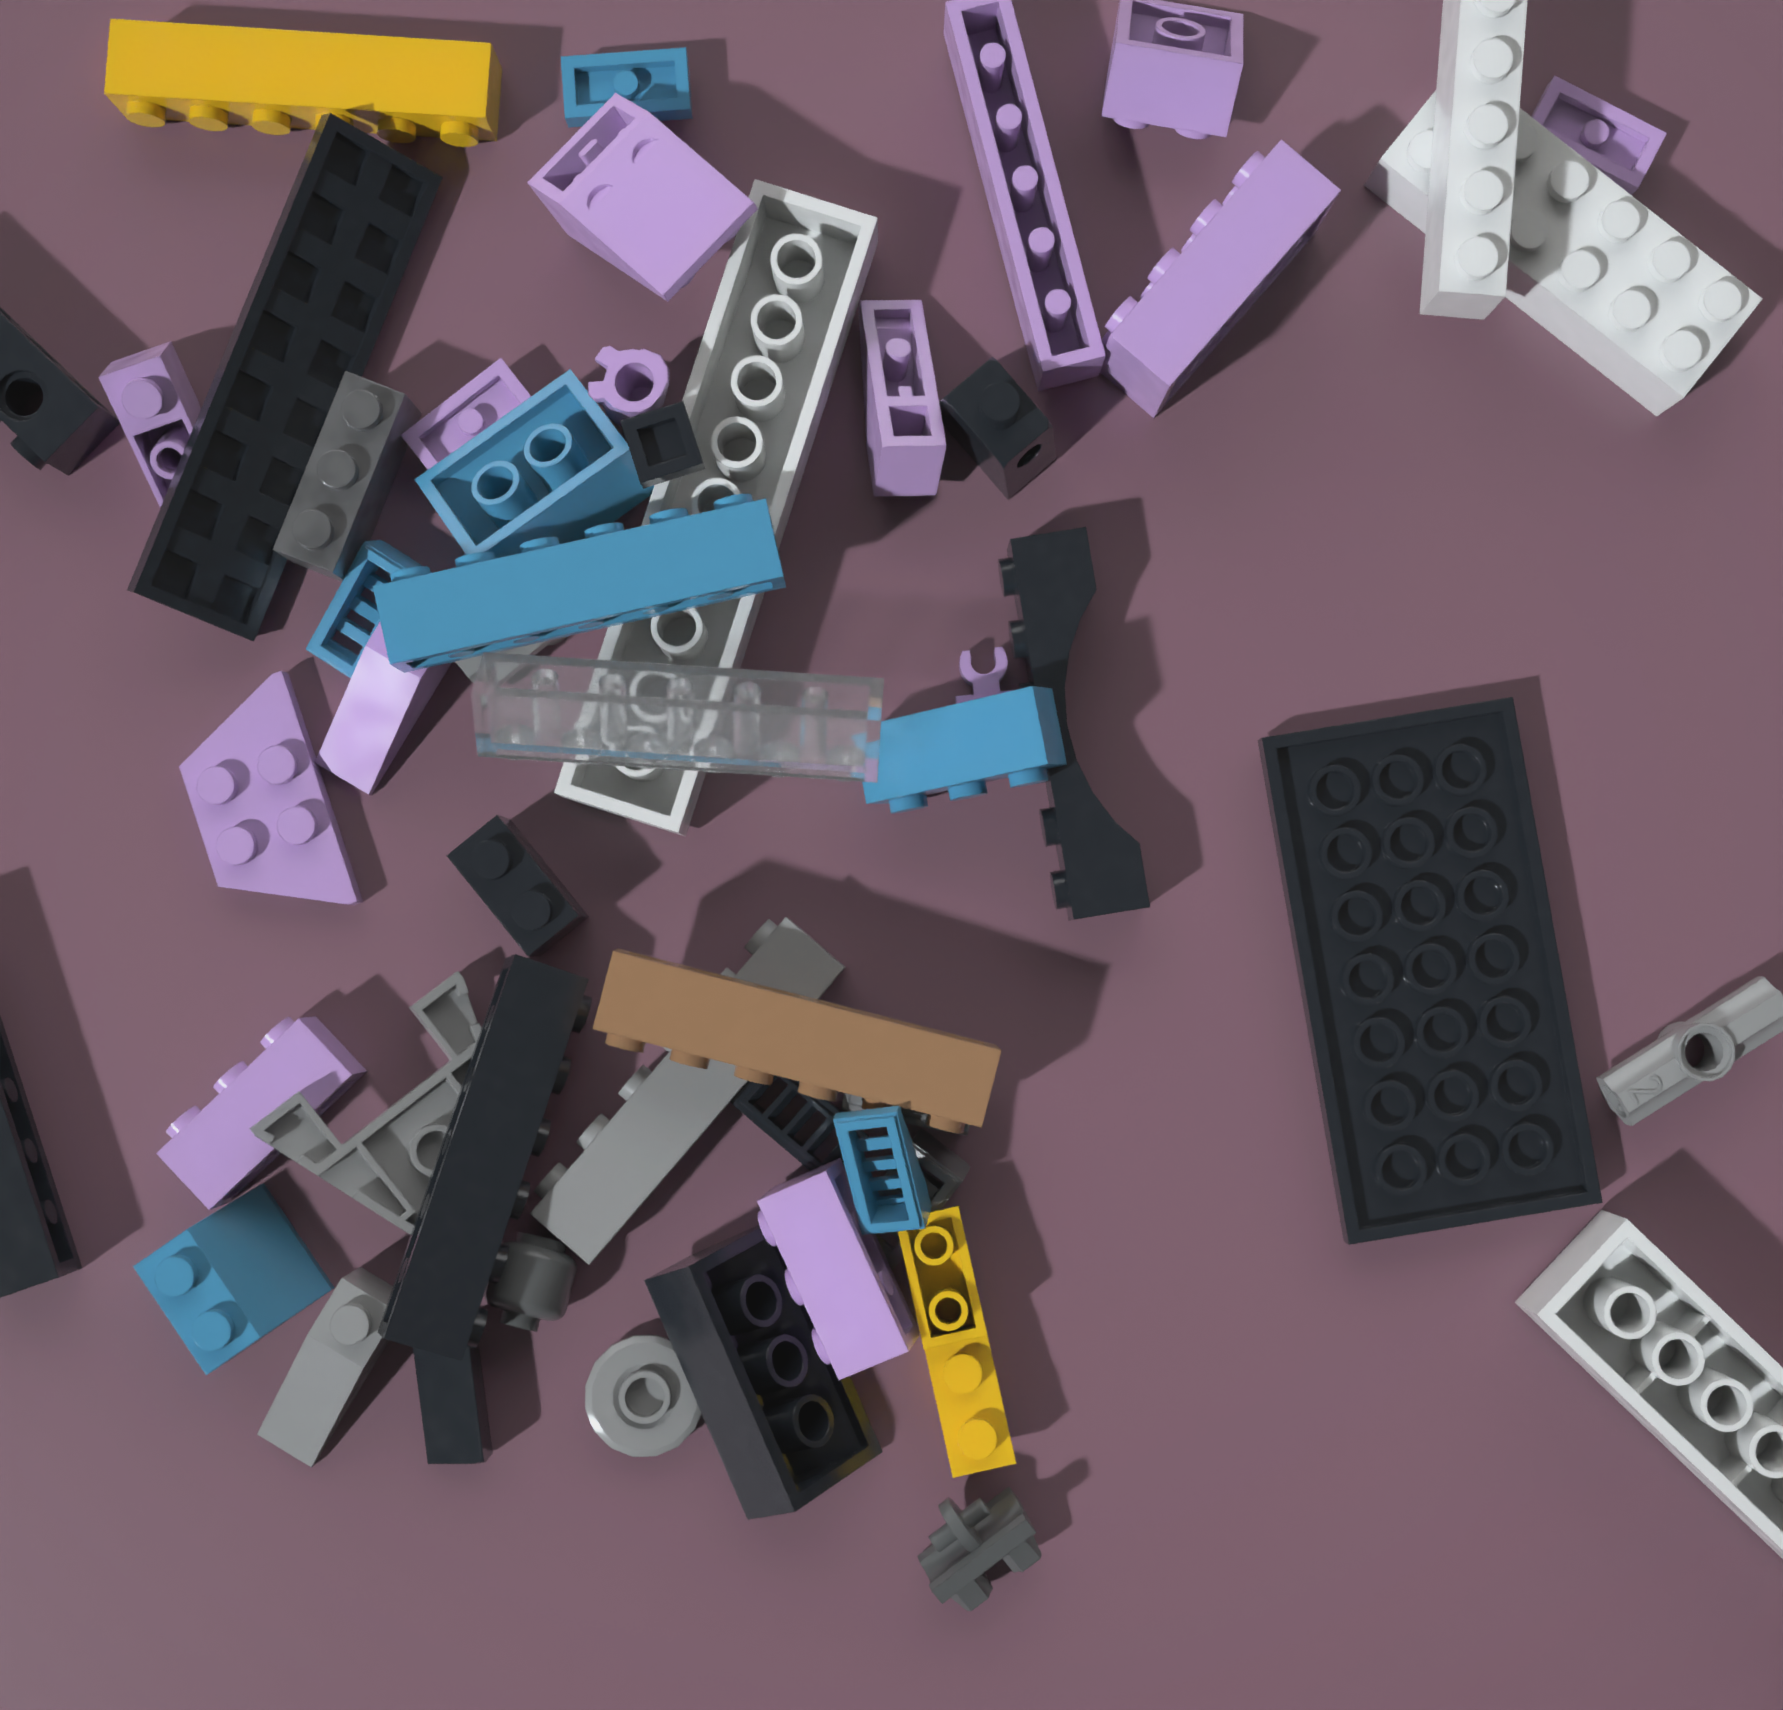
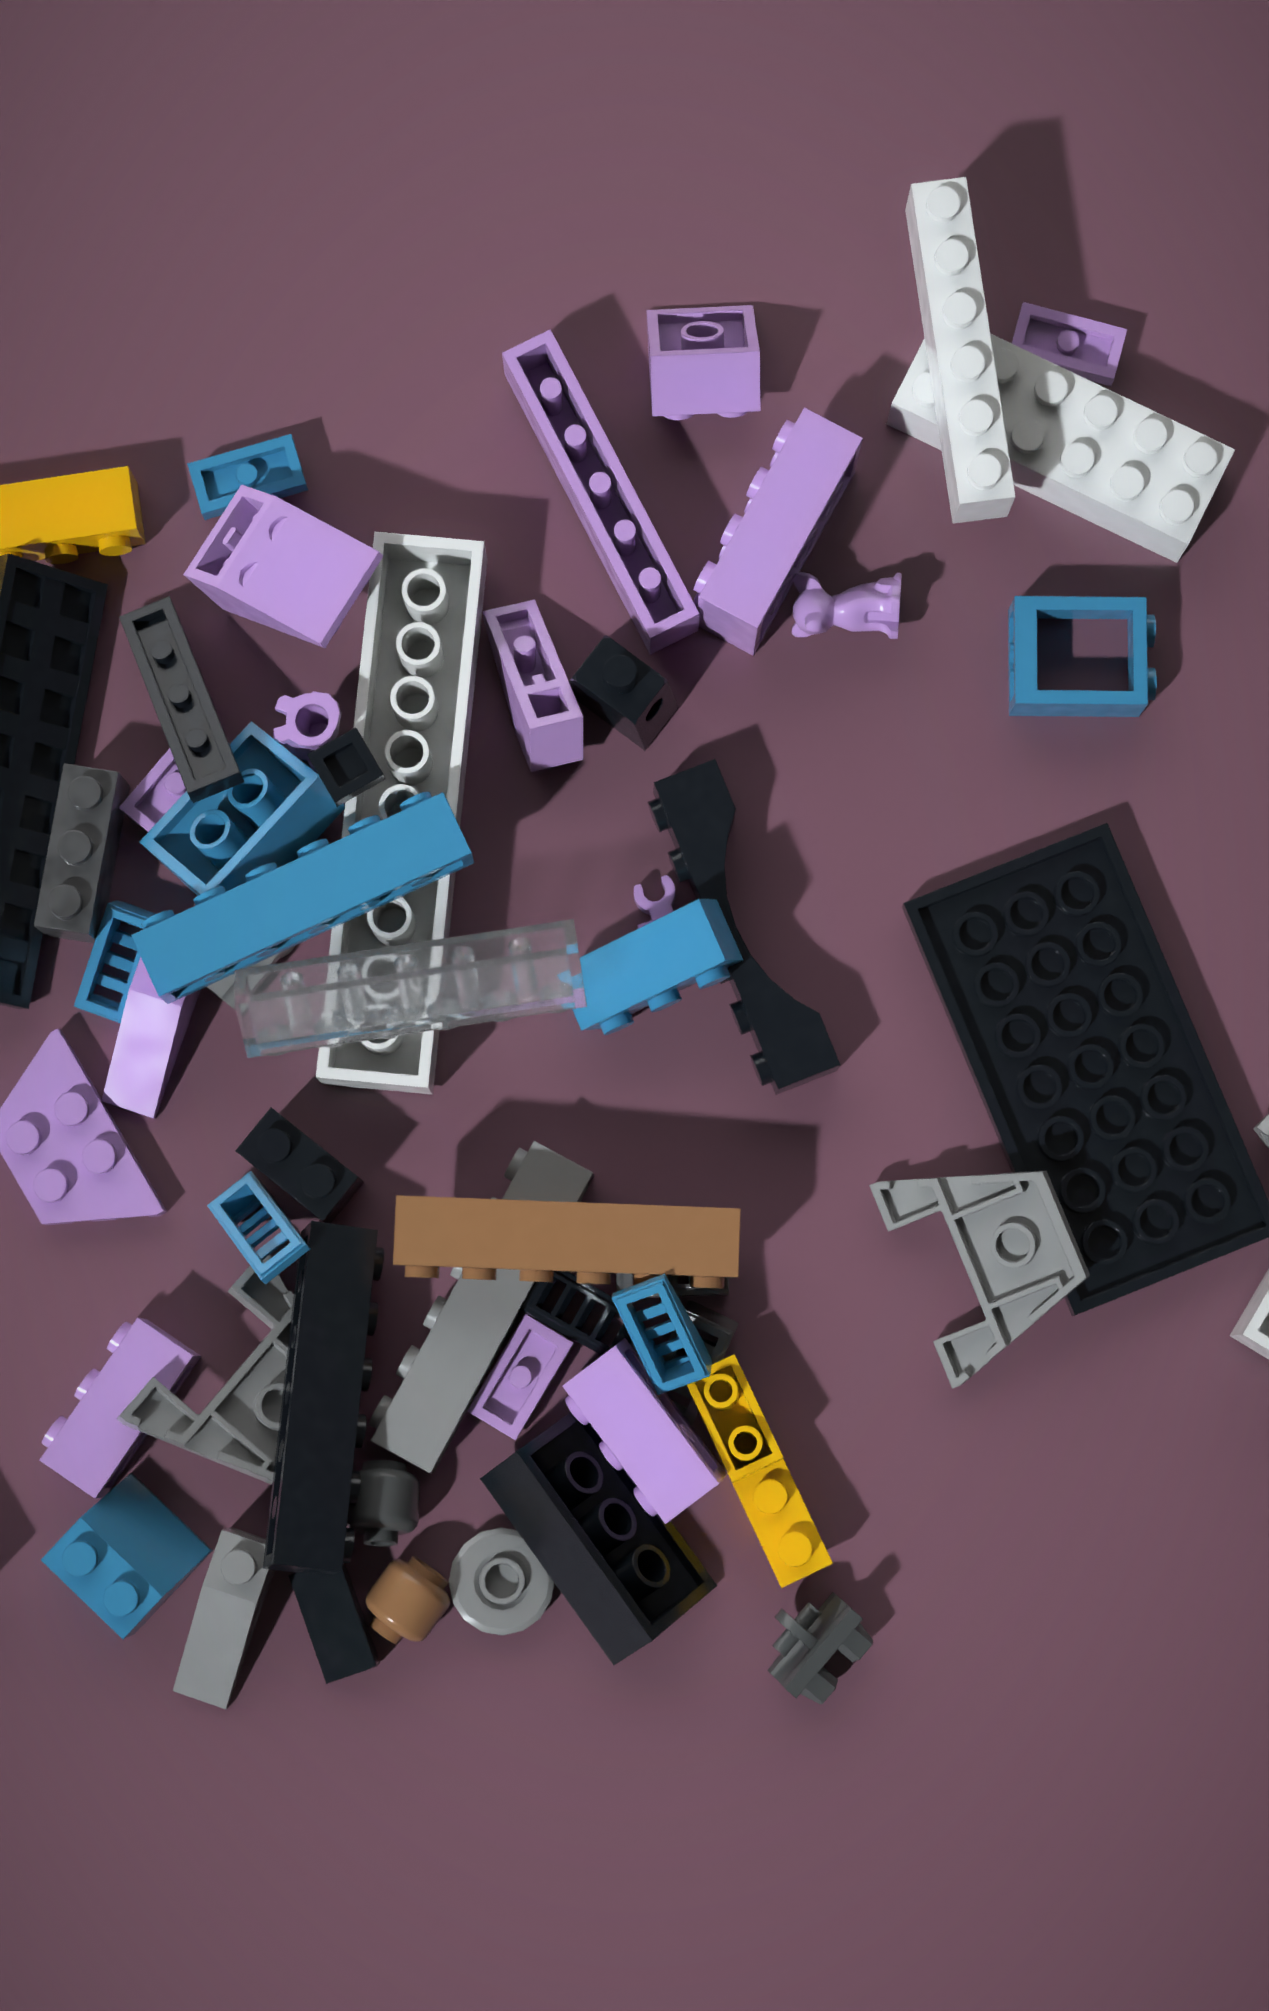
camera: 10 degrees left, 5 degrees down
(438, 913) = (237, 1204): none -> dark azure slope
(495, 327) = (181, 700): none -> black plate
(535, 1394) = (407, 1600): none -> medium nougat head
(714, 1175) = (520, 1377): none -> lavender plate
(1284, 390) = (857, 609): none -> lavender animal
(1295, 1151) = (1011, 1247): none -> light grey wing
(1460, 487) = (1022, 657): none -> dark azure window

